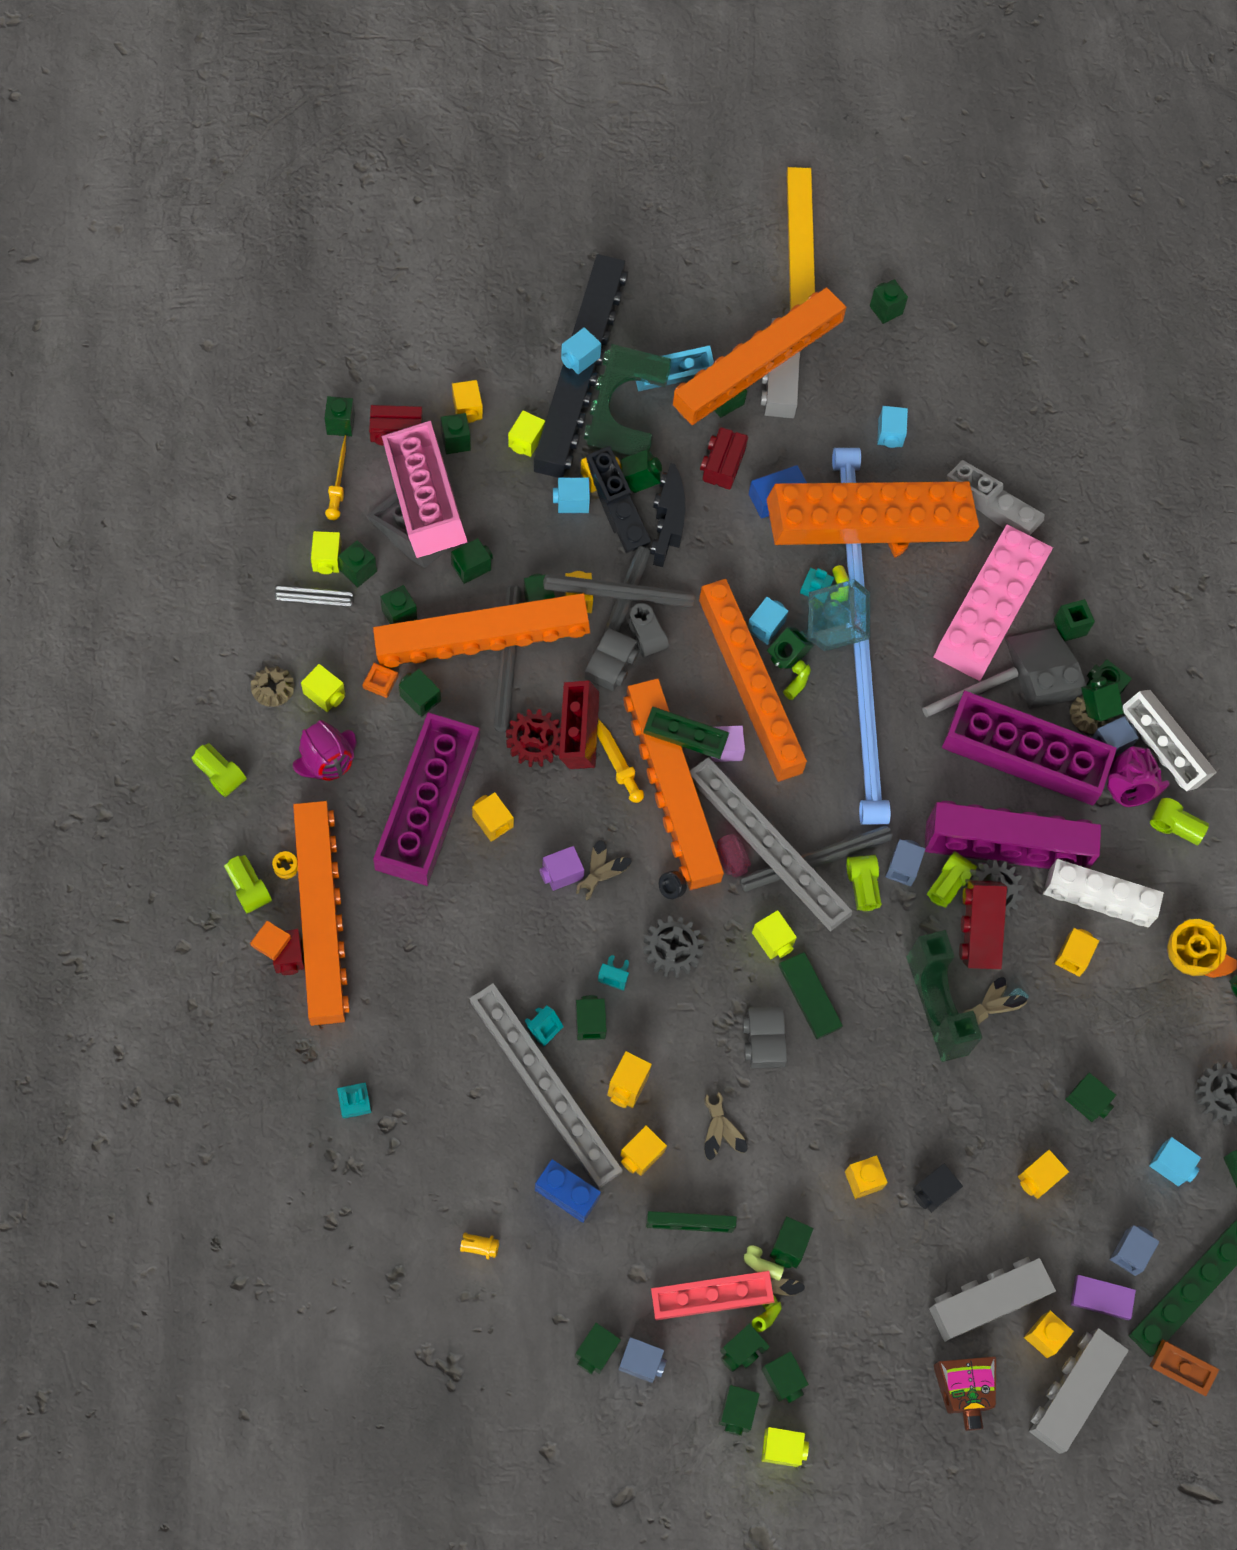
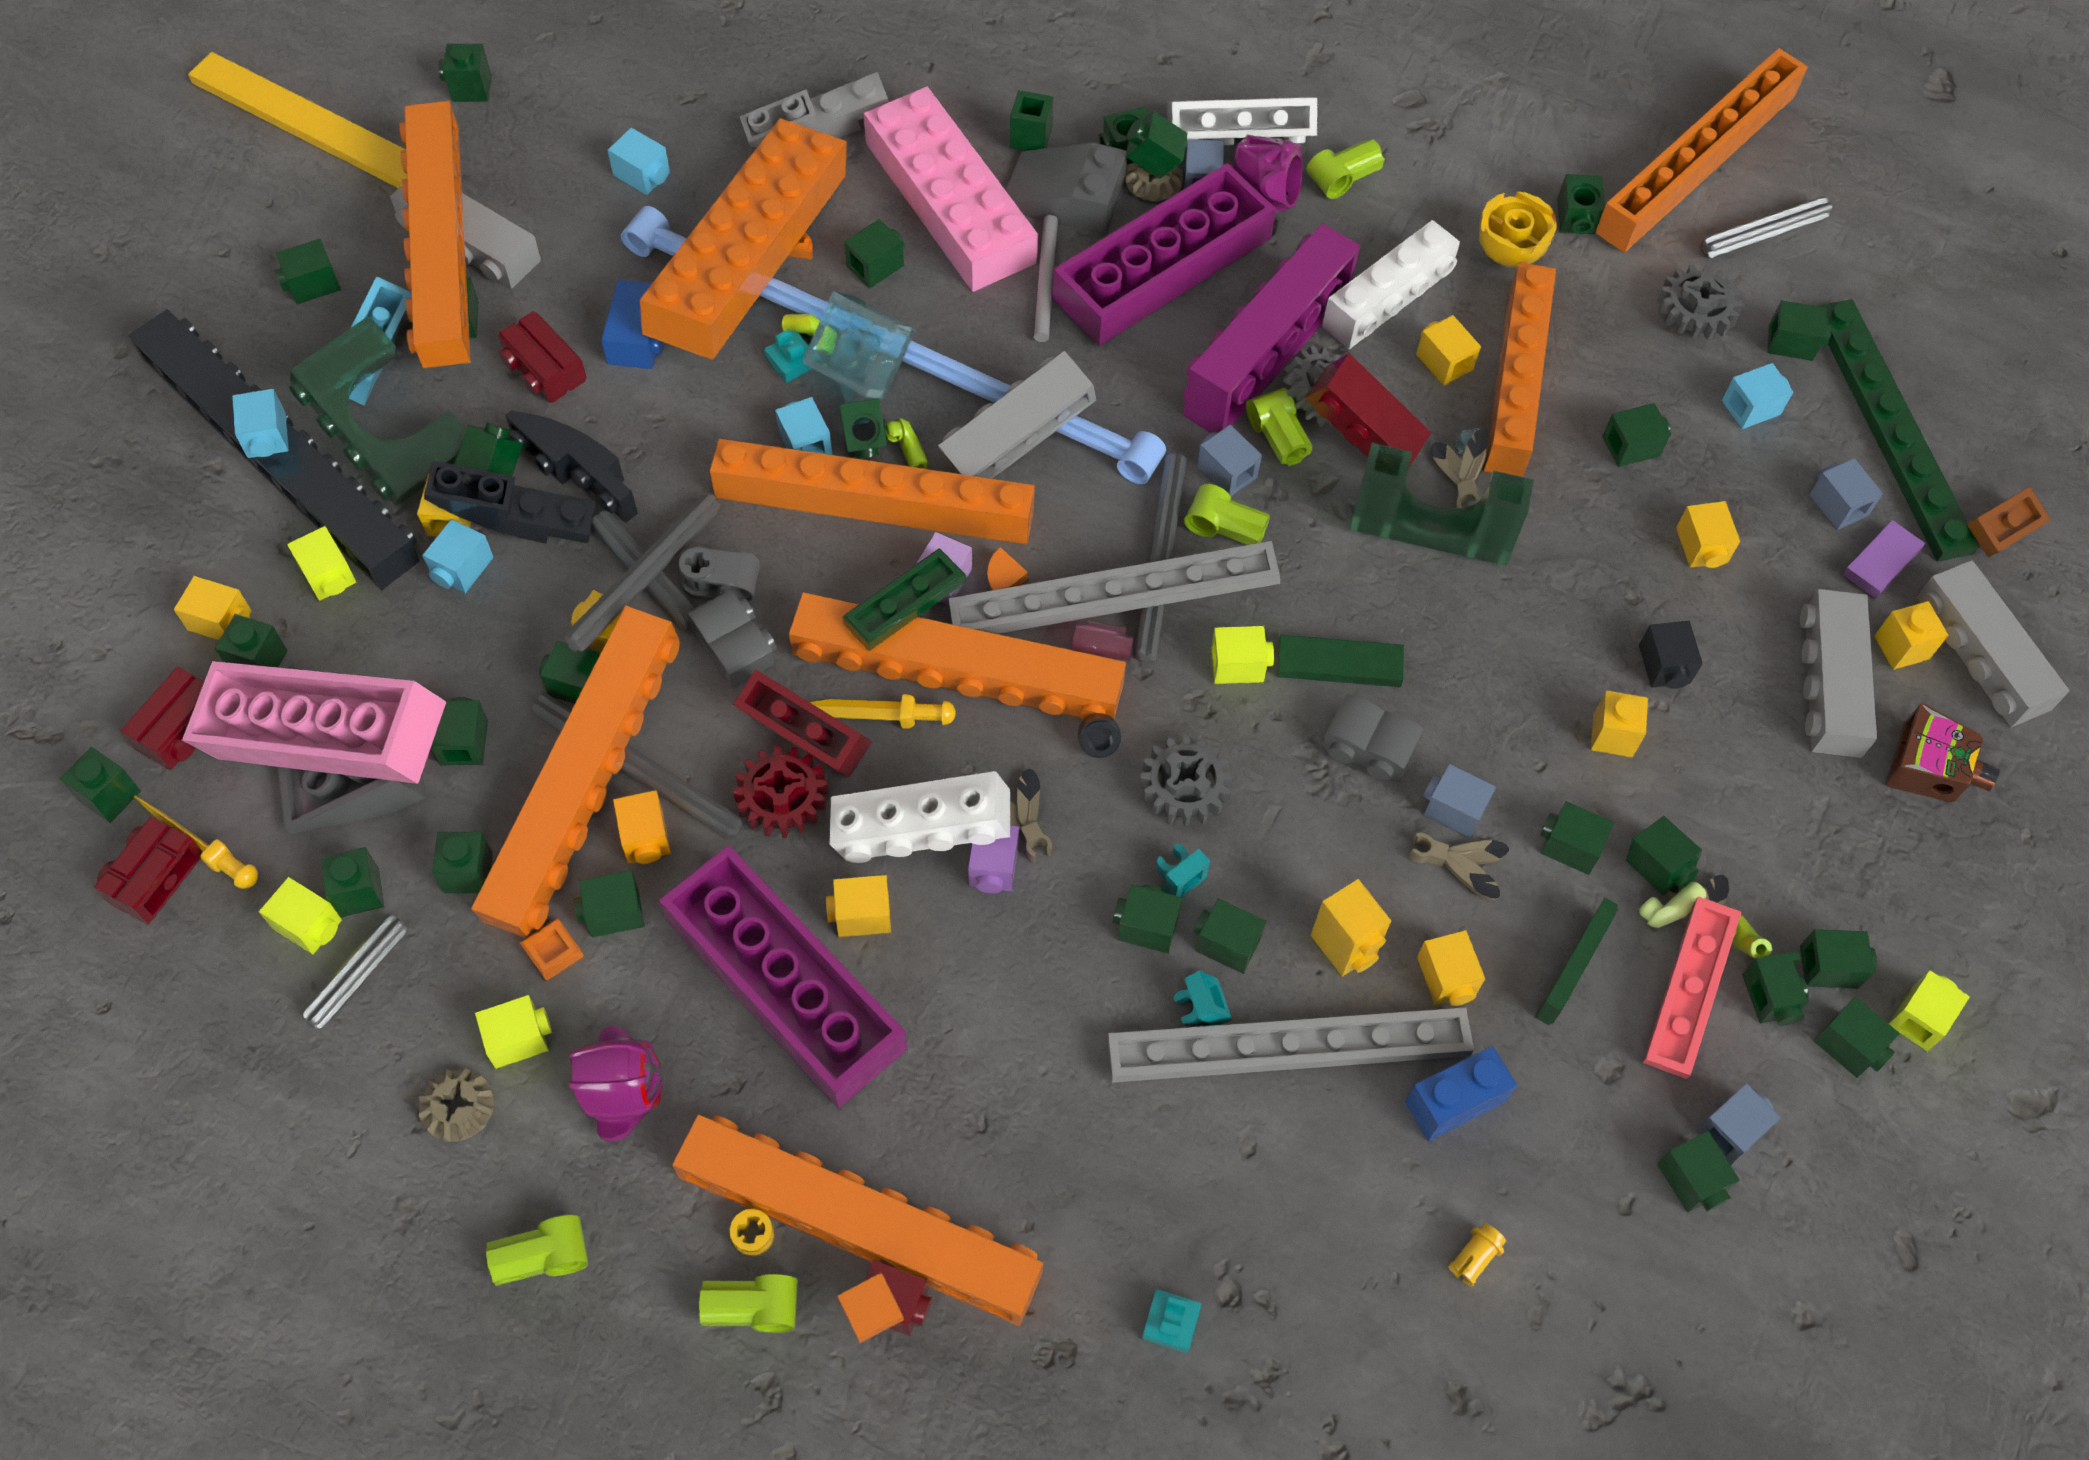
camera: 55 degrees left, 5 degrees down
(308, 467) = (148, 869): none -> dark red brick
(471, 682) = (642, 827): none -> light orange brick
(557, 816) = (920, 817): none -> white brick
(575, 969) = (1147, 917): none -> dark green brick
(699, 309) = (306, 271): none -> dark green brick
(747, 778) = (1005, 571): none -> orange tile
(755, 1105) = (1457, 800): none -> sand blue brick
(772, 1185) = (1575, 837): none -> dark green brick
(846, 729) = (1019, 419): none -> light grey brick
(918, 588) = (874, 253): none -> dark green brick
(1091, 1002) = (1520, 370): none -> orange brick

